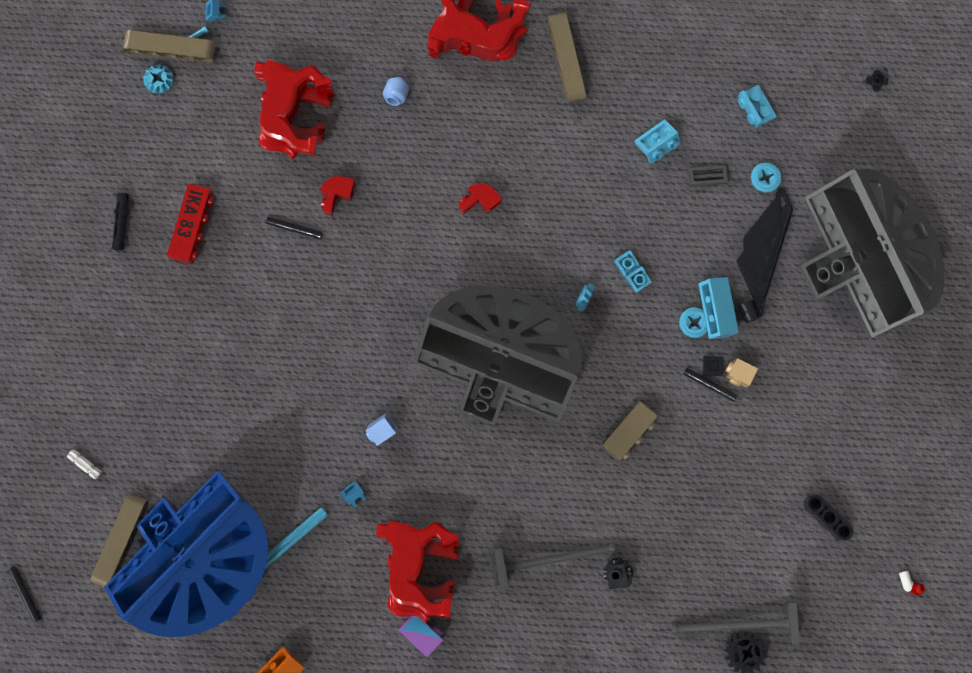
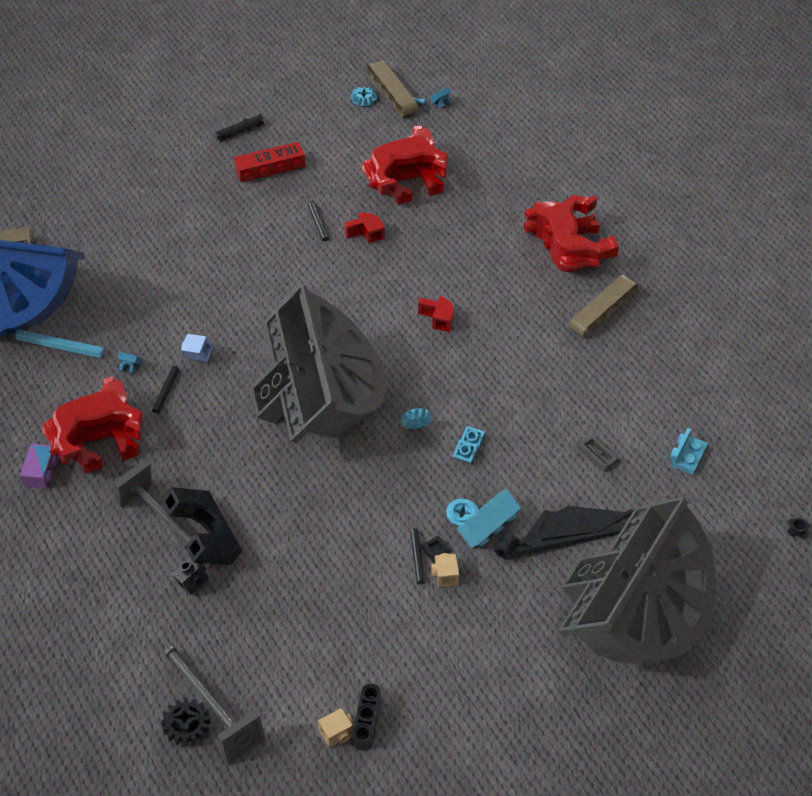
camera: 55 degrees right, 30 degrees down
(84, 464) = (37, 198): white axle -> none
(396, 91) = (477, 220): light blue head -> none
(403, 480) = (165, 389): none -> black bar
(604, 531) = (212, 548): none -> black arch
(630, 431) = (326, 516): dark tan brick -> none
(658, 141) = (592, 402): medium azure bracket -> none
(768, 169) = (629, 488): medium azure gear -> none
(823, 545) = (336, 727): none -> tan brick

